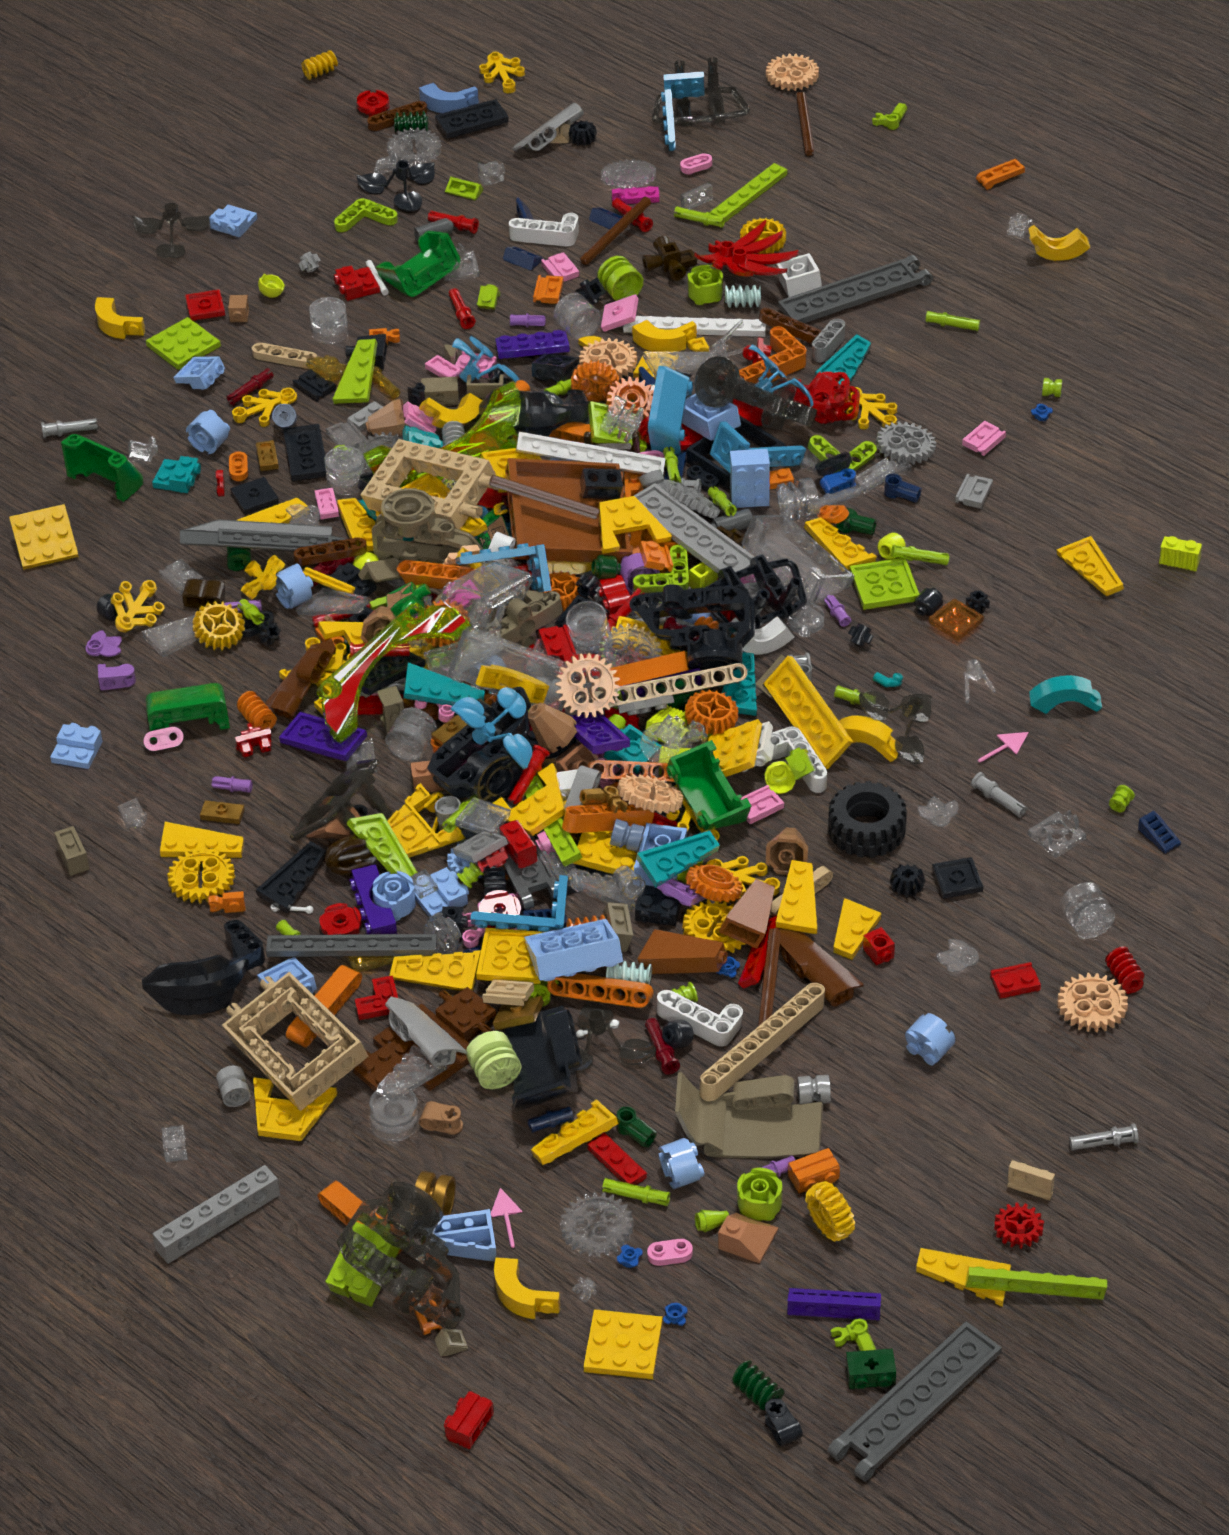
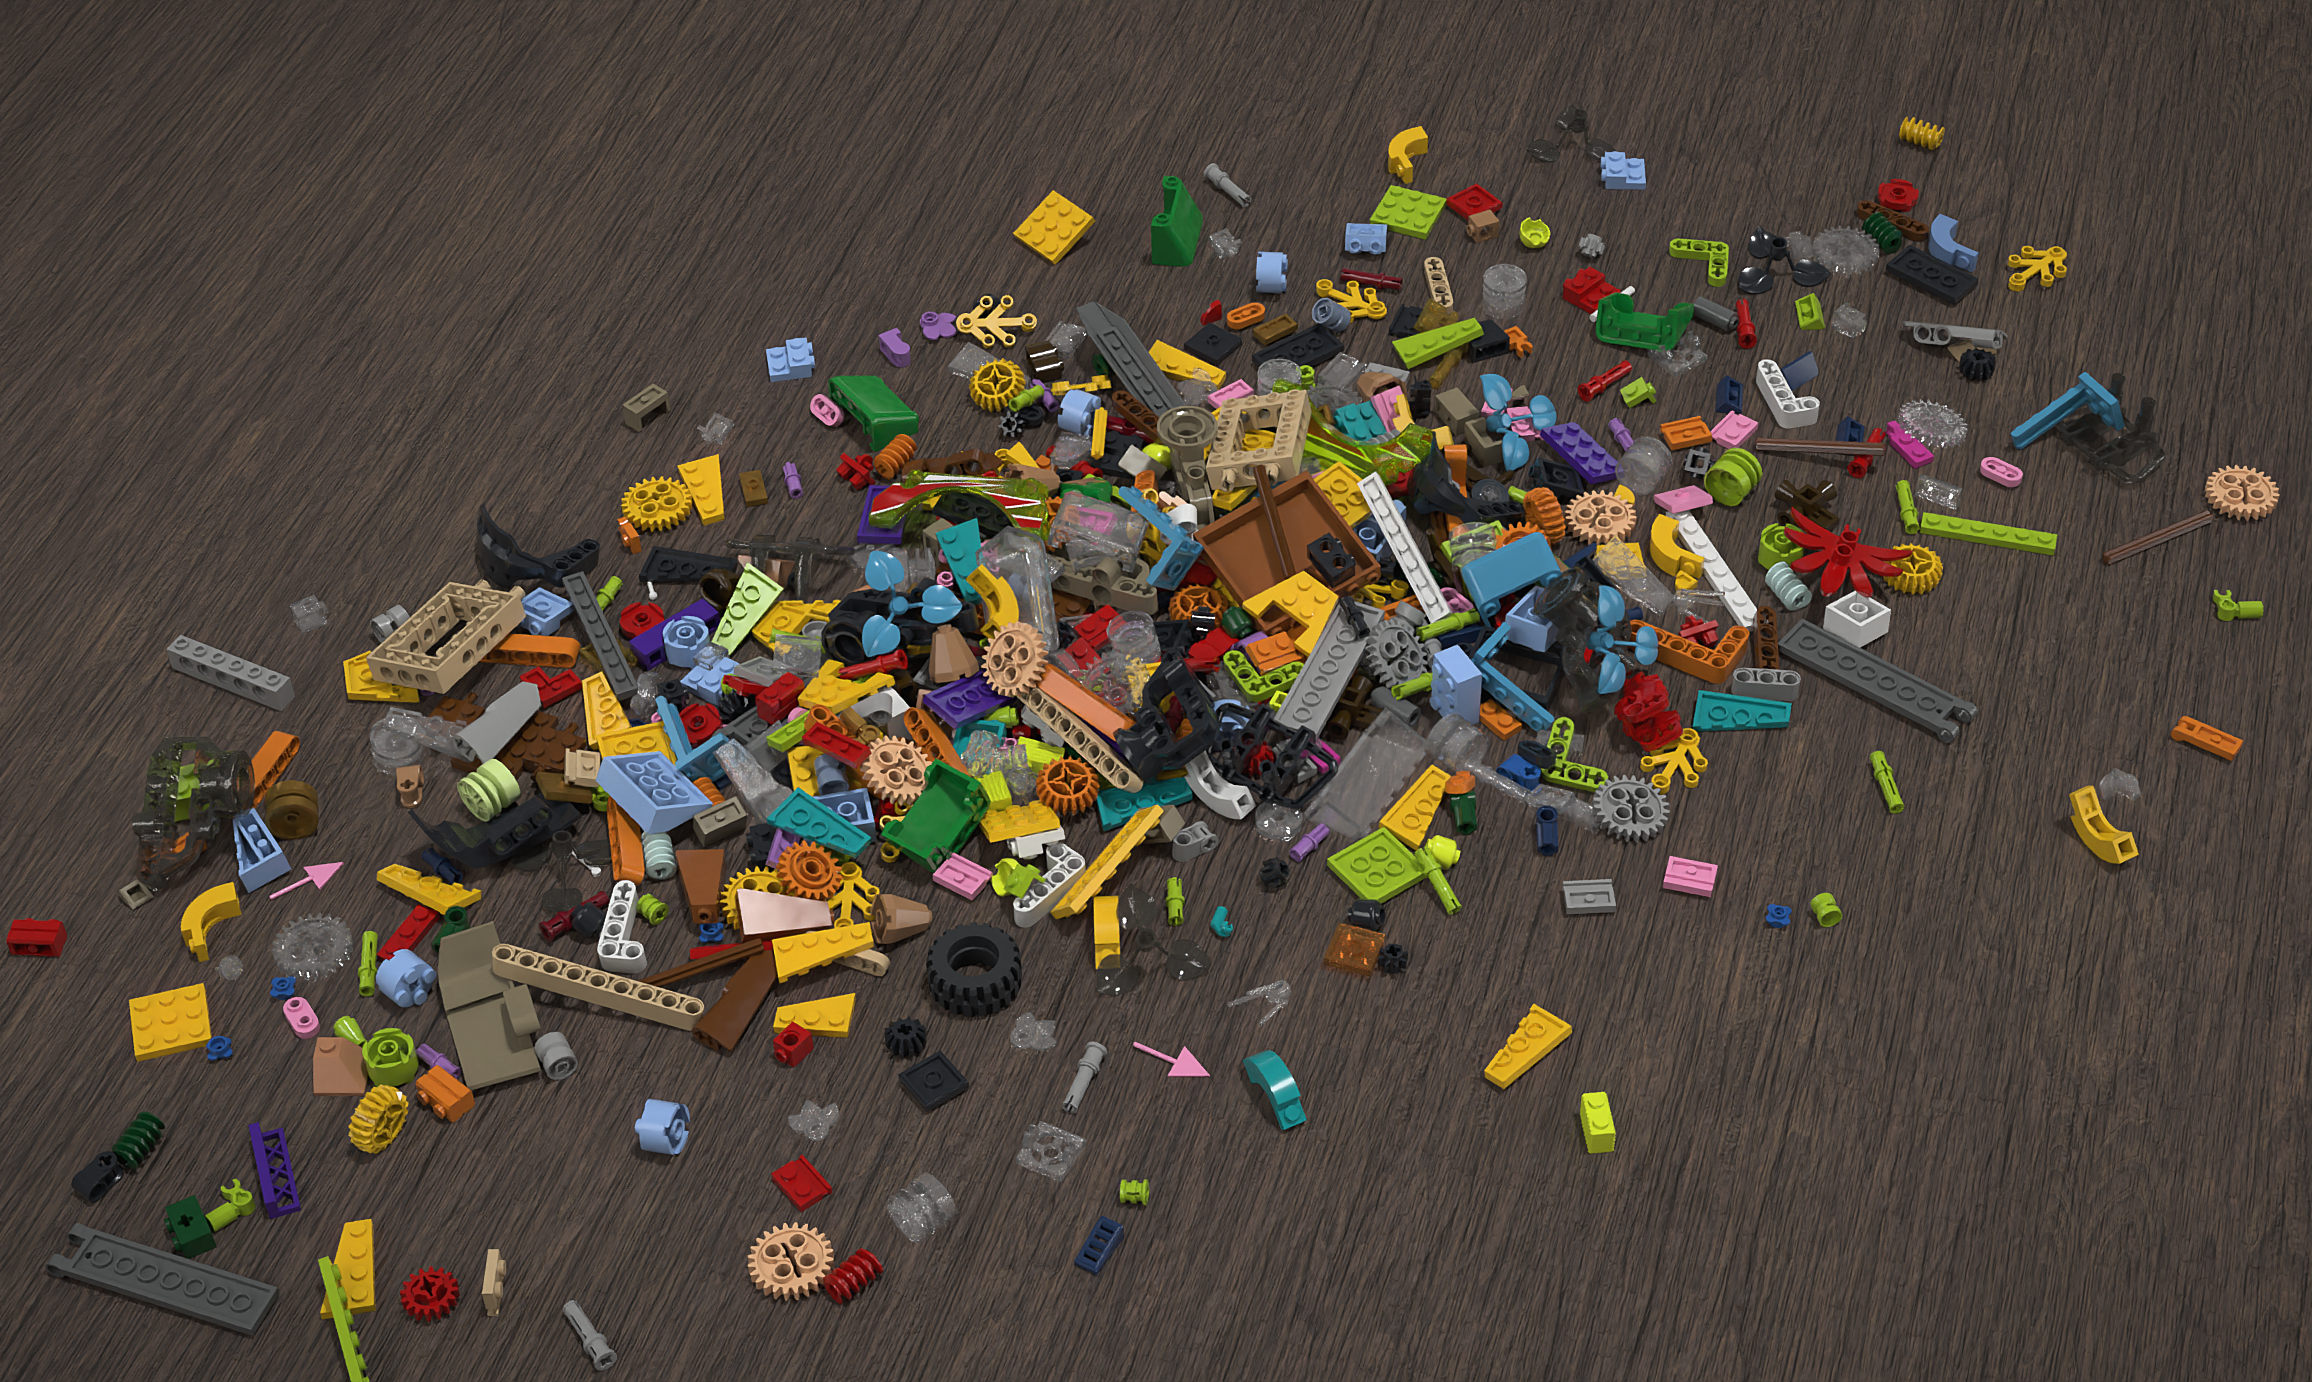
camera: 65 degrees right, 0 degrees up
(177, 475) = (1208, 281): teal plate -> none
(618, 810) = (836, 745): none -> red plate
(656, 497) = (1354, 617): none -> black pin

